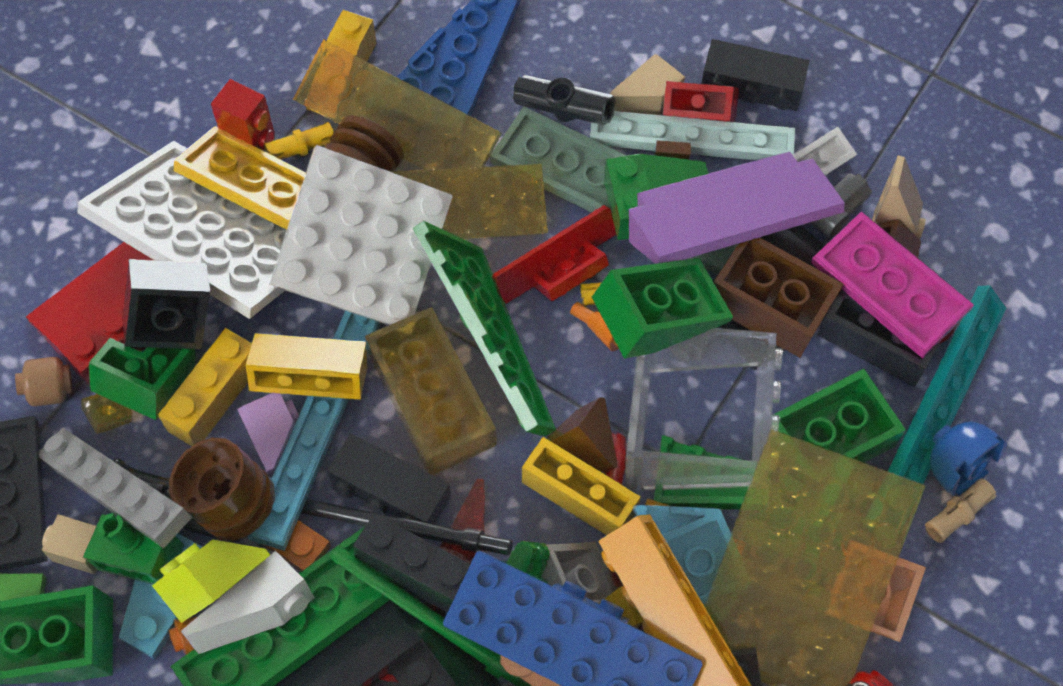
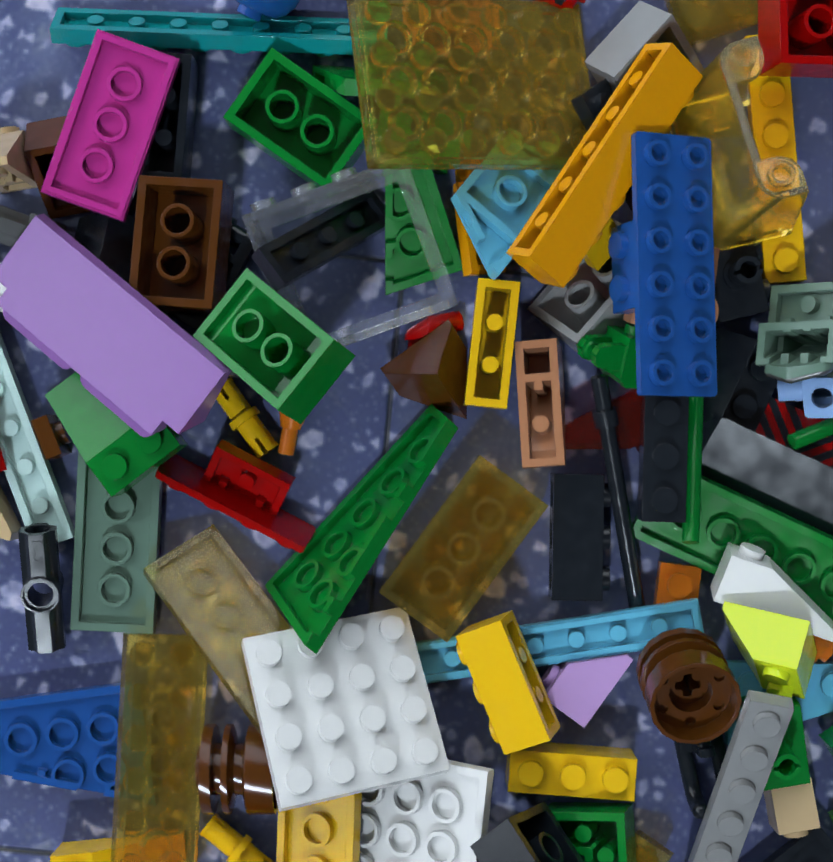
camera: 115 degrees left, 25 degrees up
(513, 500) = (541, 402): none -> nougat slope
(729, 388) = (320, 240): none -> black plate

